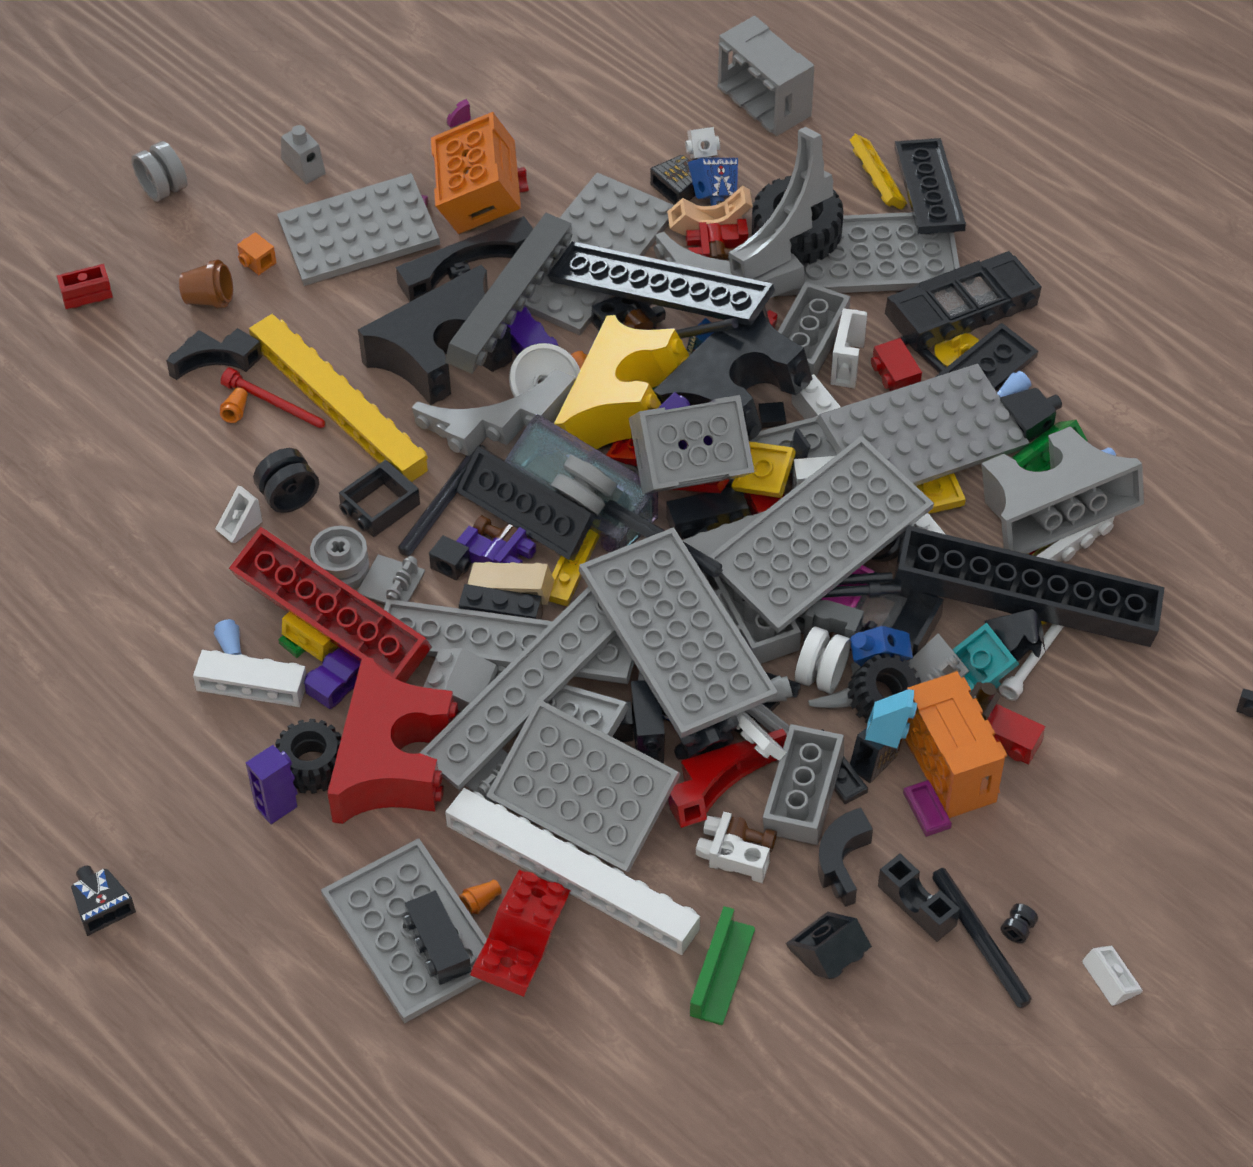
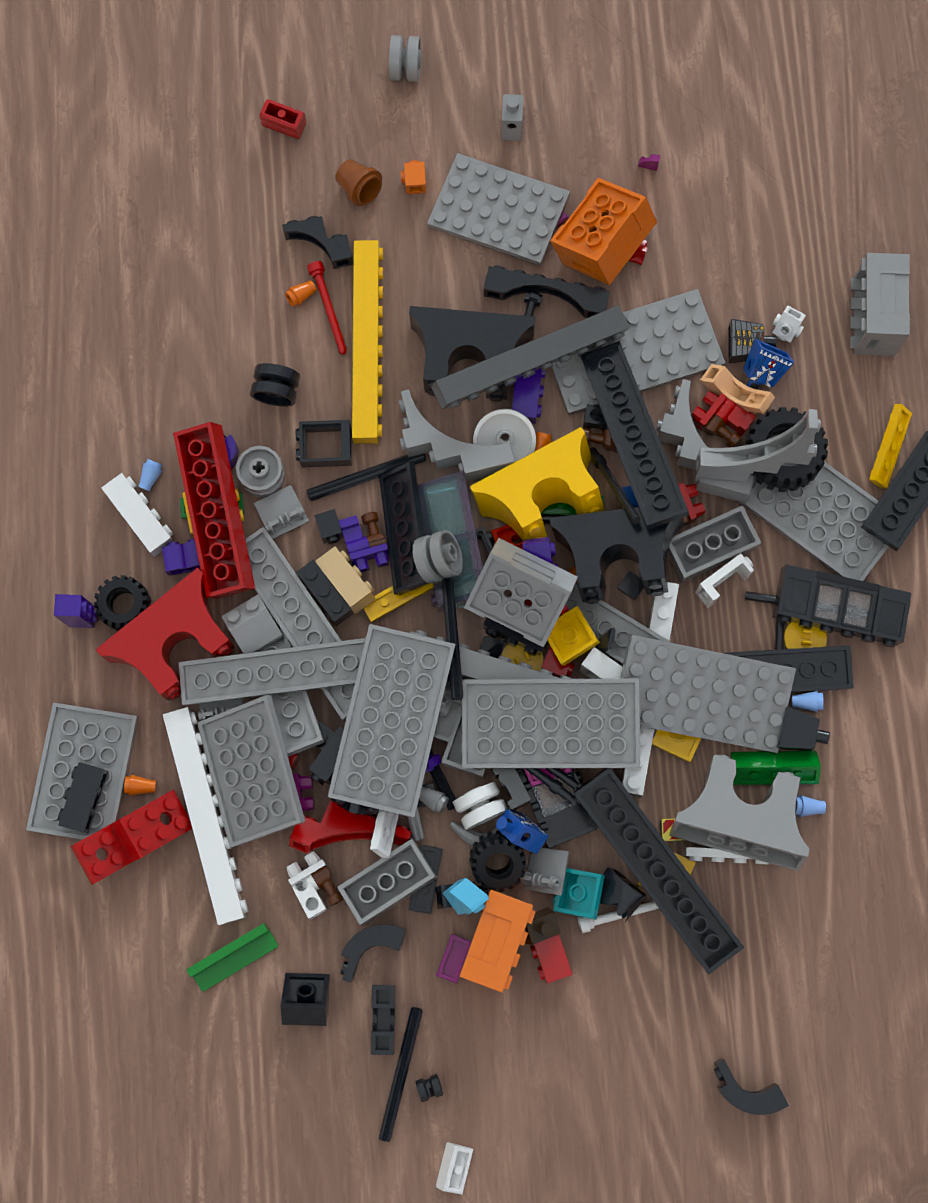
camera: 45 degrees right, 25 degrees up
(239, 516) = (230, 386): white slope -> none
(895, 365) = (745, 619): red brick -> none

